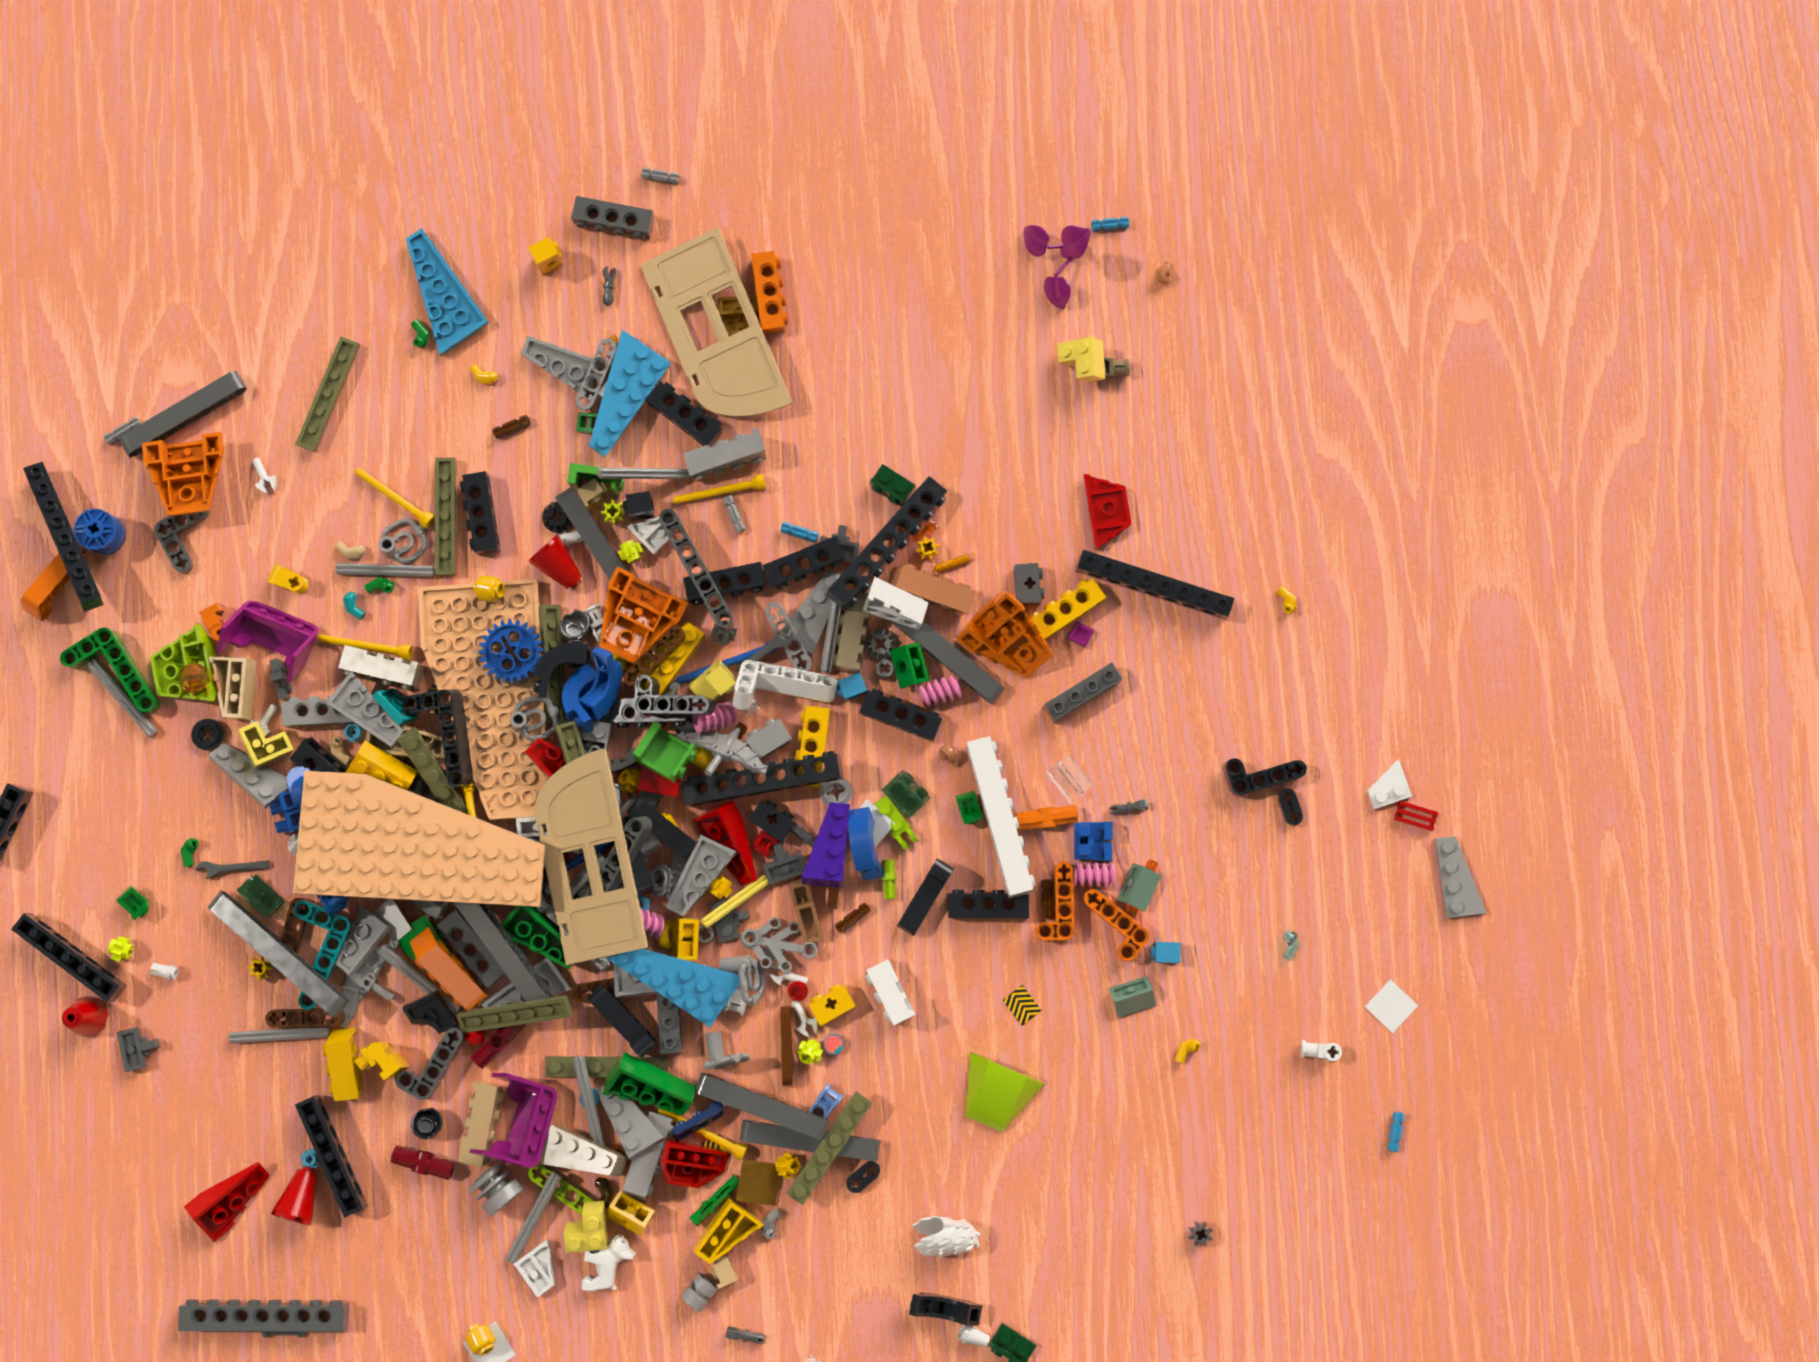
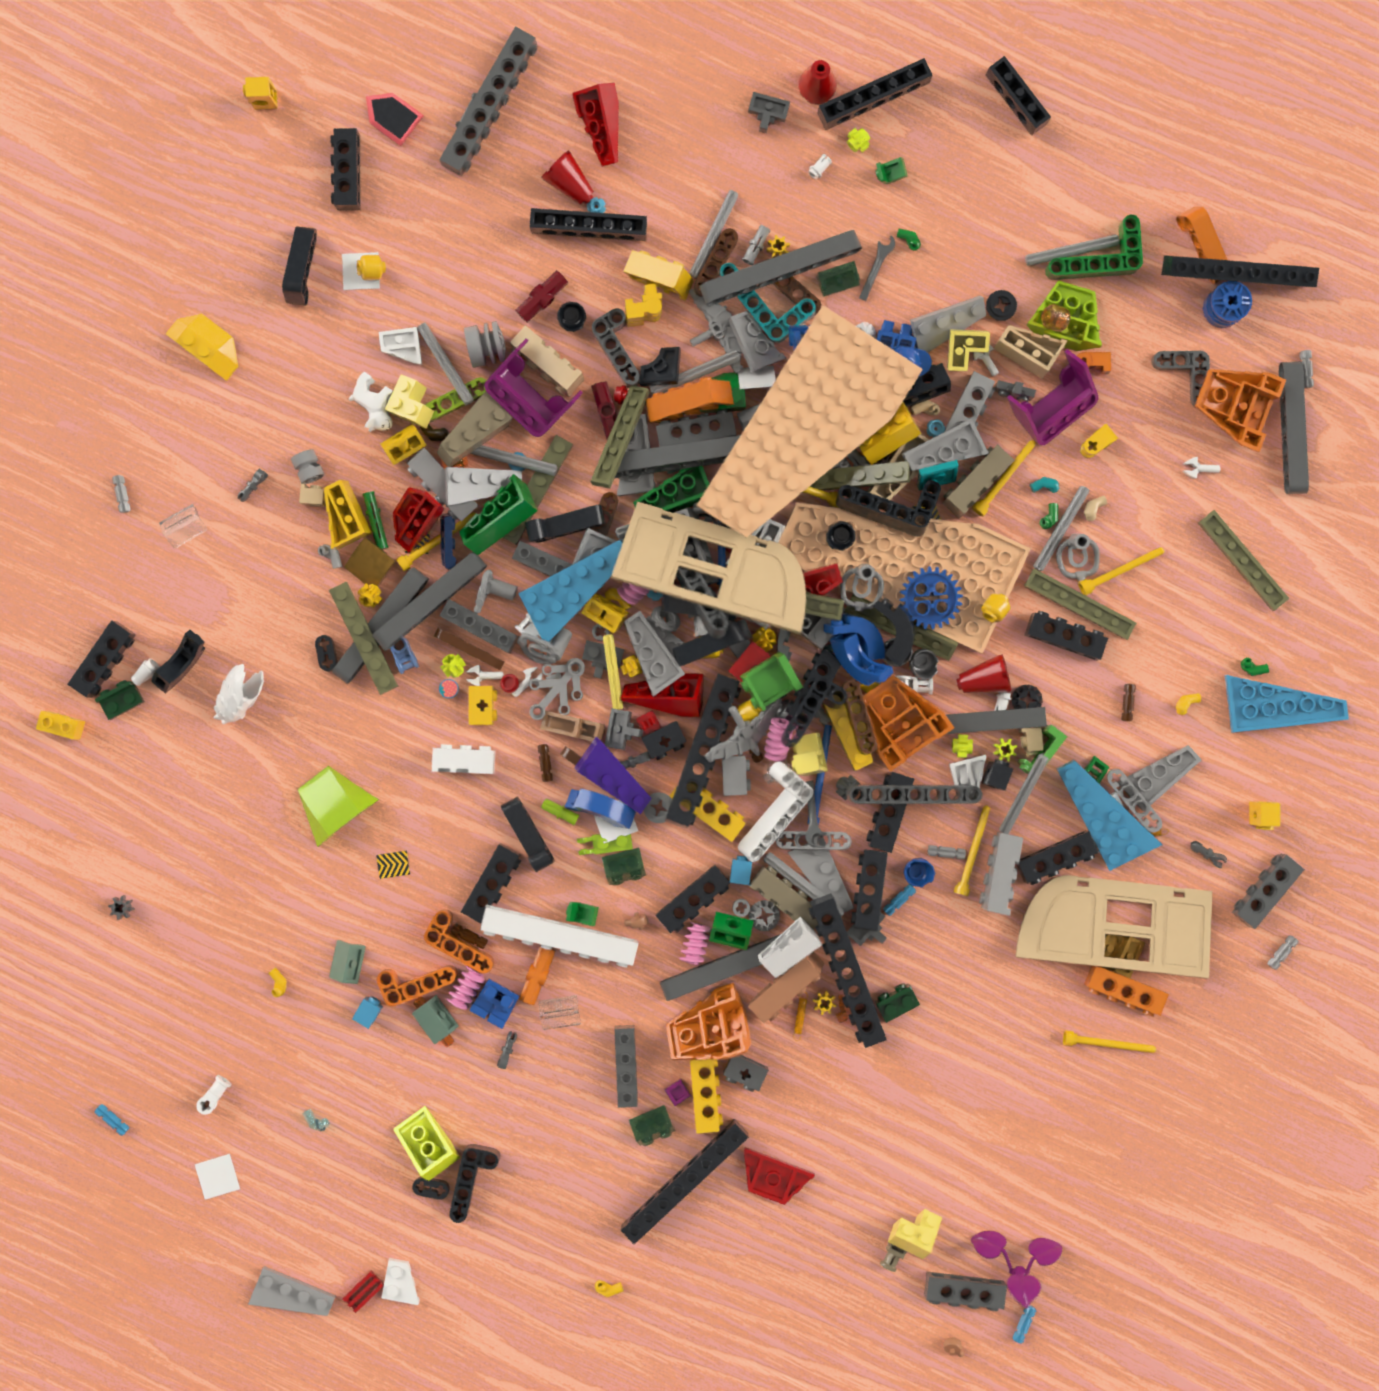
camera: 125 degrees right, 5 degrees up
(268, 989) = (751, 255): none -> light grey pin
(497, 762) = (840, 535): none -> black hair
(760, 1048) = (479, 626): none -> dark grey brick
(765, 528) = (919, 872): none -> blue hair
(838, 316) = (1071, 1038): none -> yellow piece
(1116, 318) = (976, 1285): none -> dark grey brick
(1123, 640) = (652, 1126): none -> clear green bracket
(1253, 832) = (426, 1144): none -> neon yellow slope

